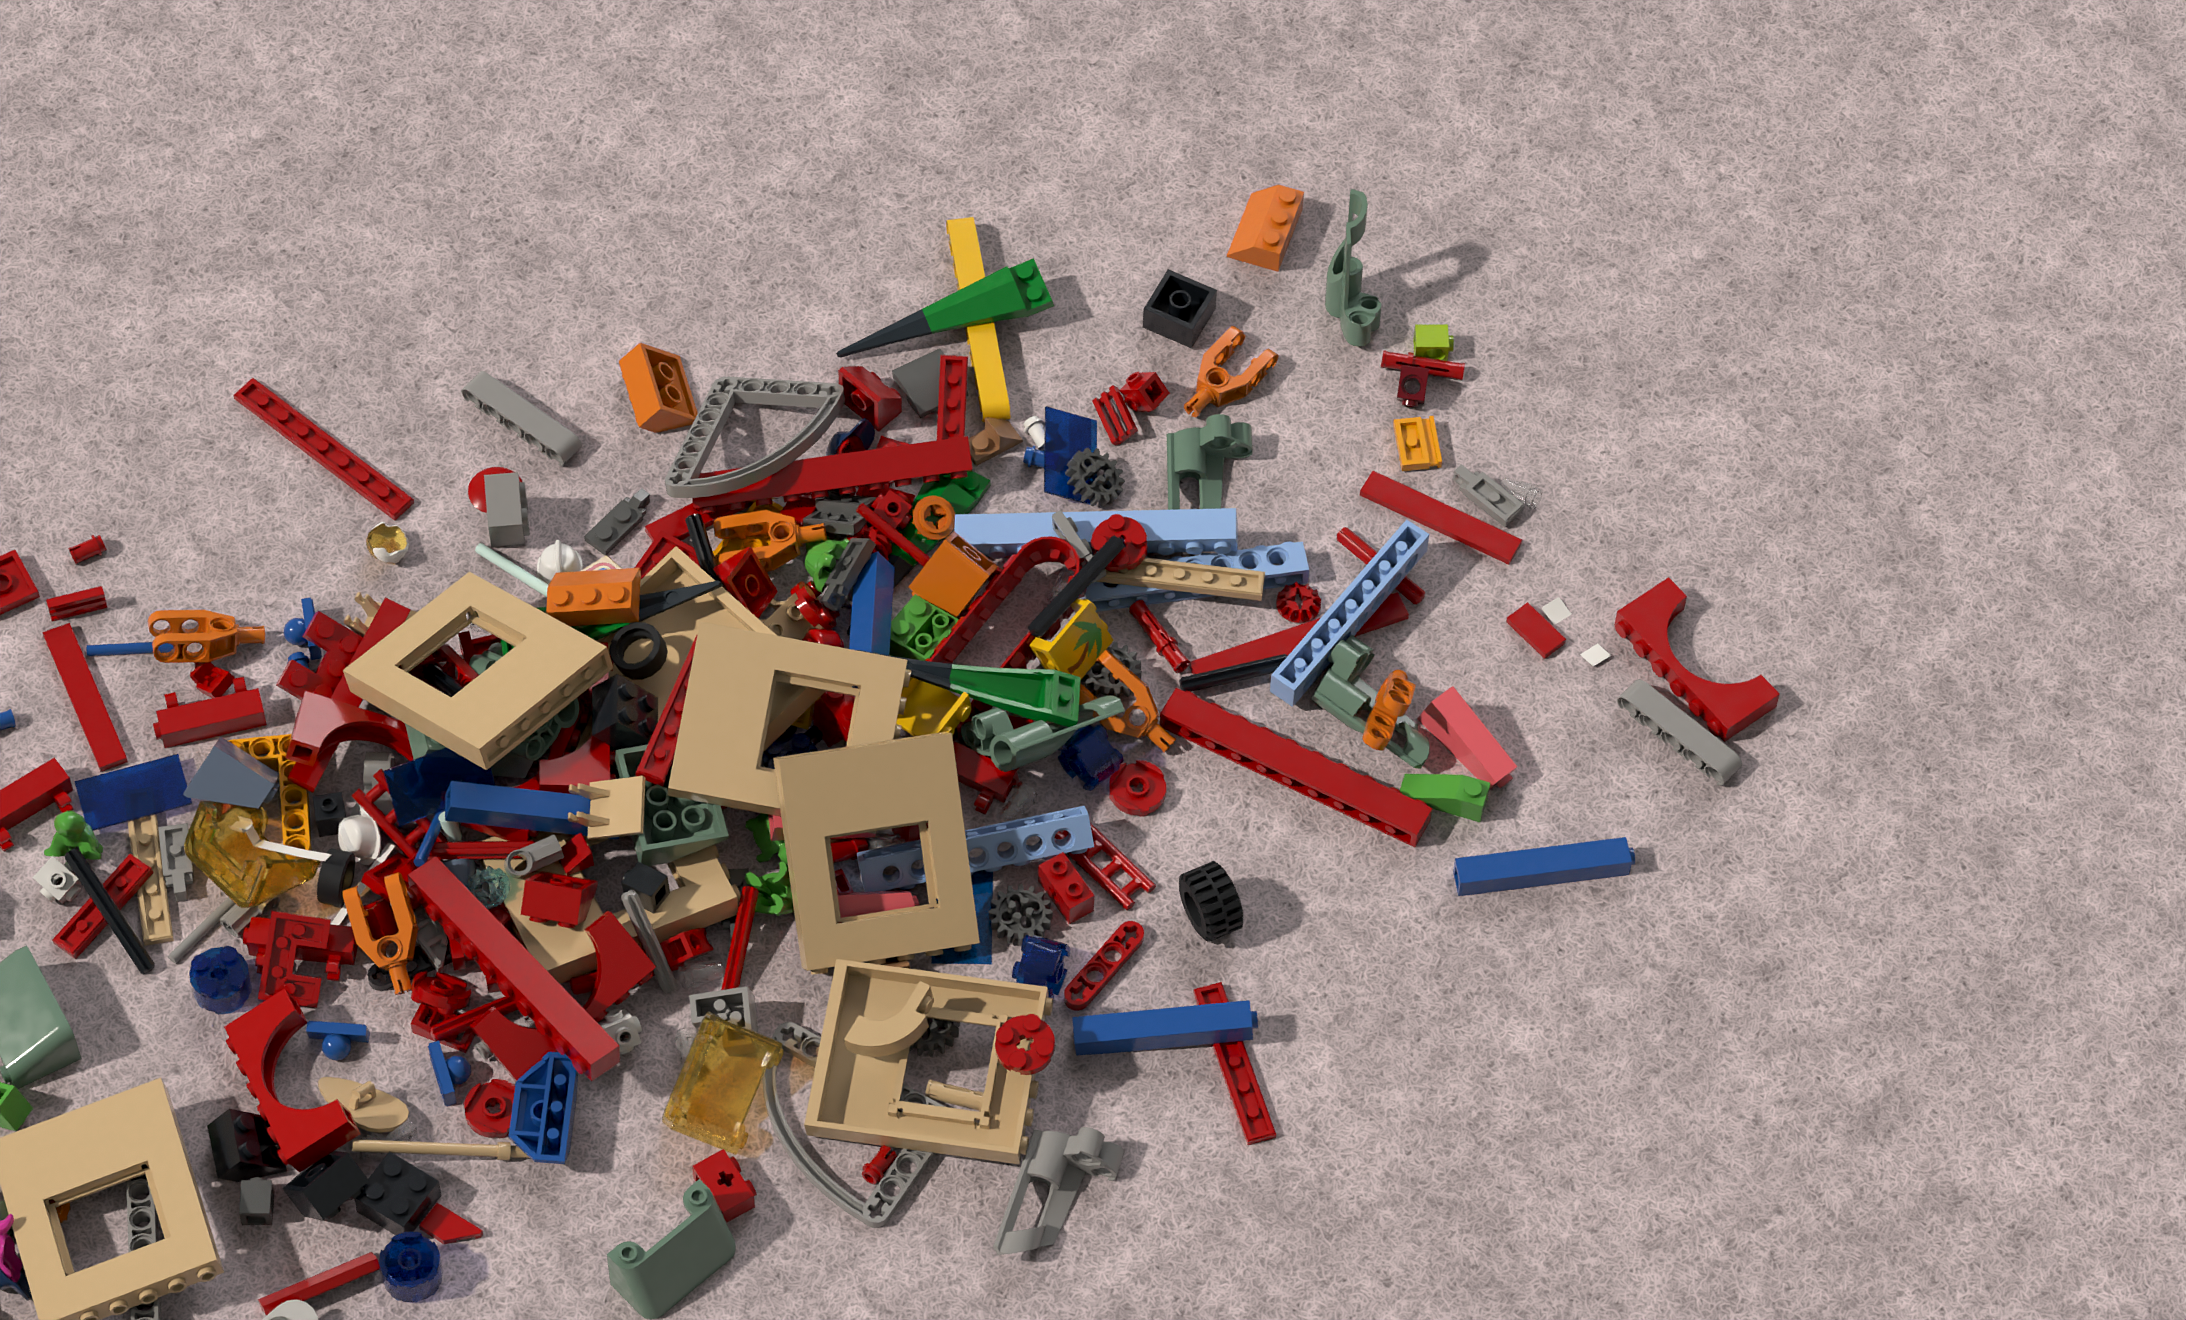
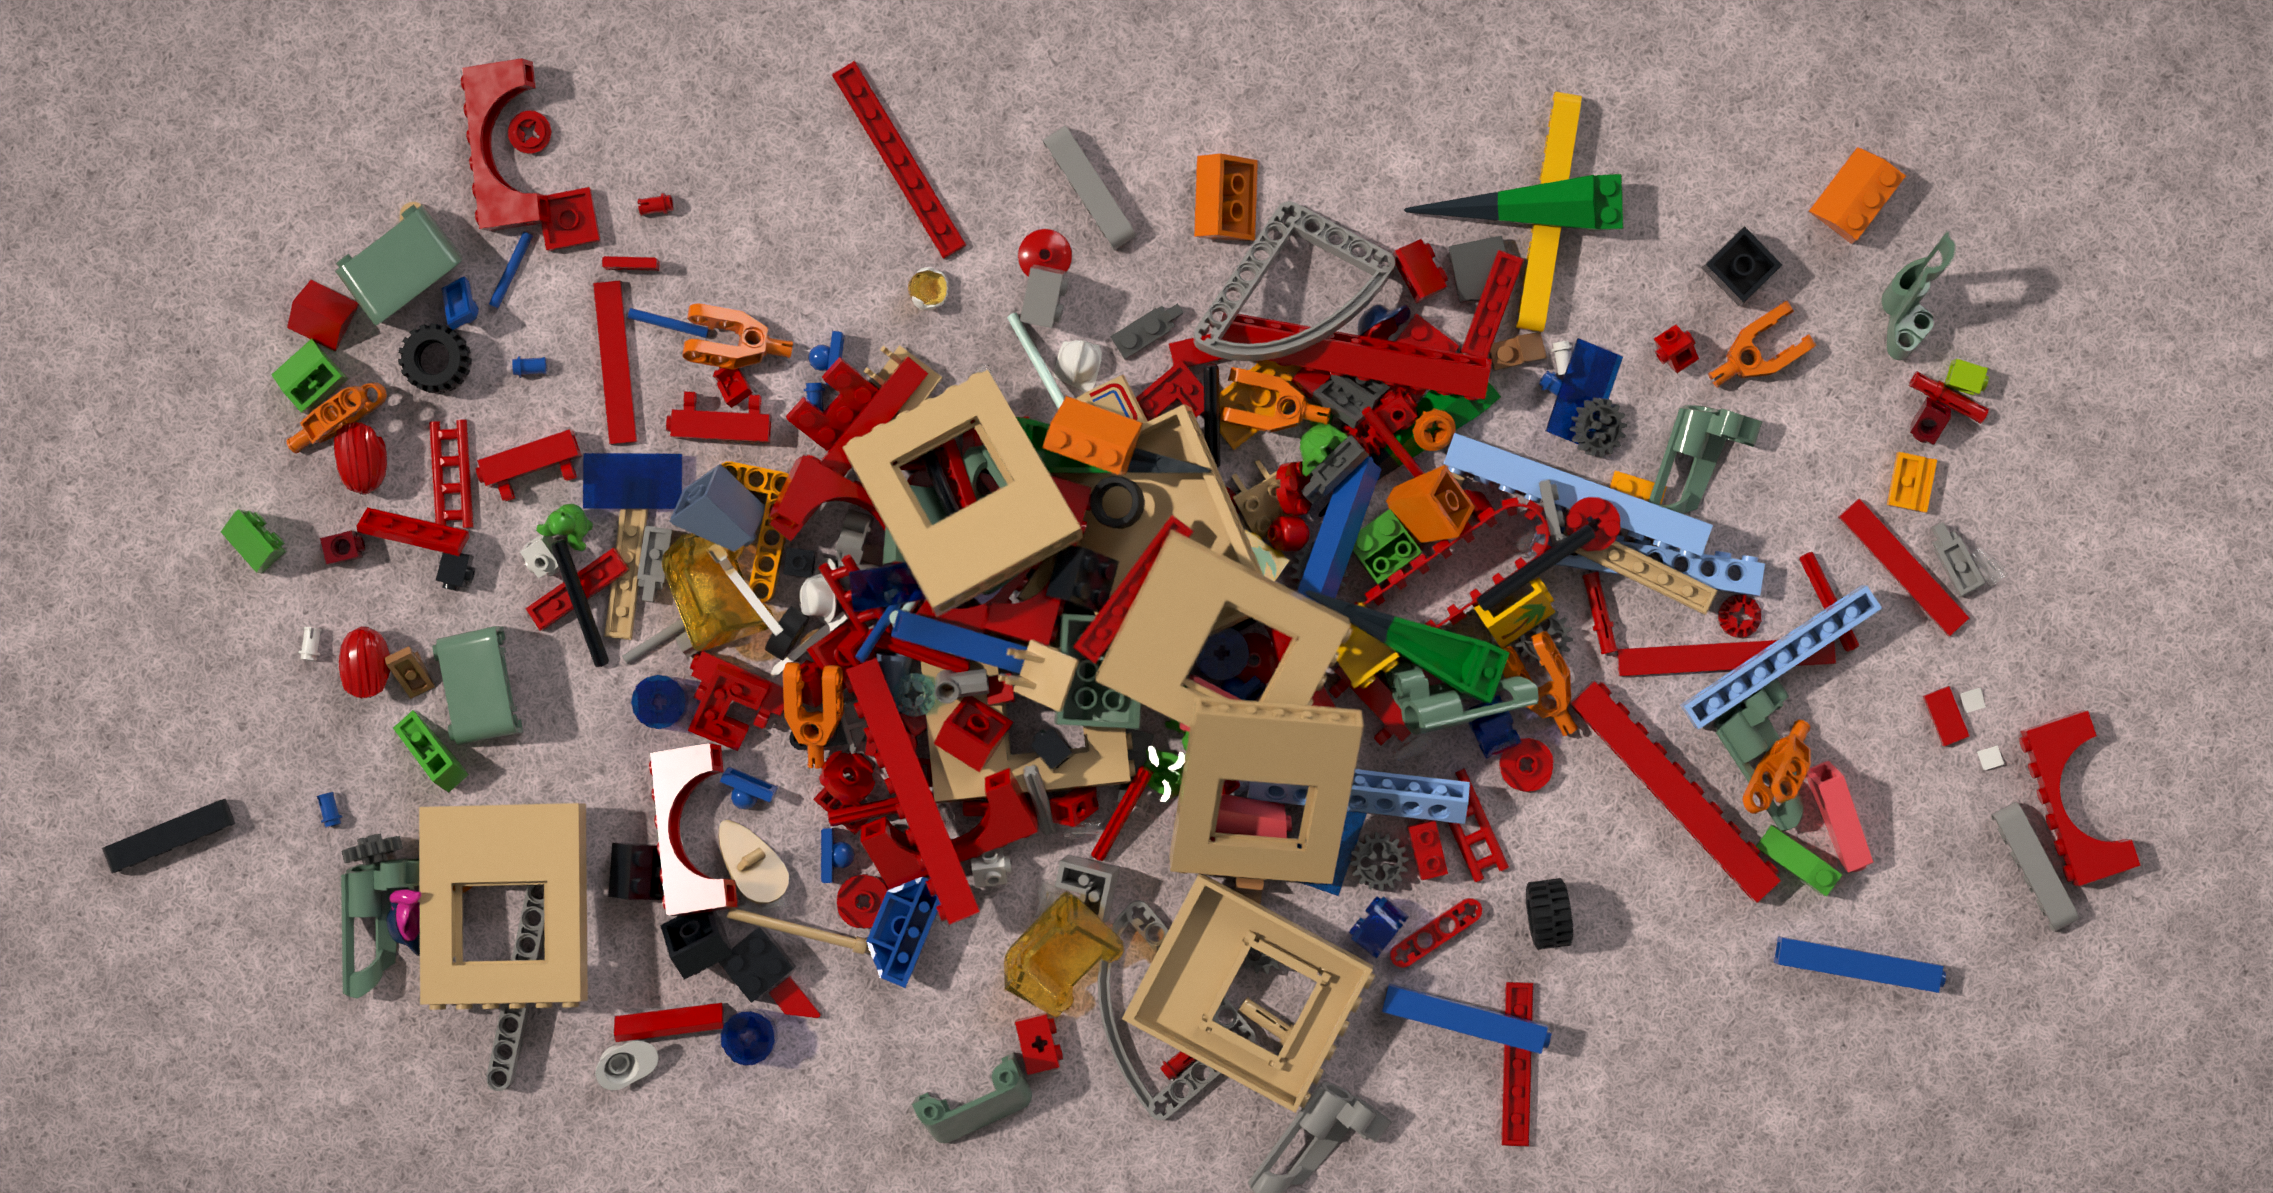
camera: 20 degrees right, 30 degrees up
(256, 1202) = (636, 927): dark grey brick -> none
(747, 581) = (1238, 449): red slope -> none
(893, 1034) = (1223, 972): tan arch -> none
(1029, 1028) = (1344, 1007): red plate -> none
(1106, 421) = (1636, 361): red tile -> none
(1231, 673) = (1654, 678): black axle -> none

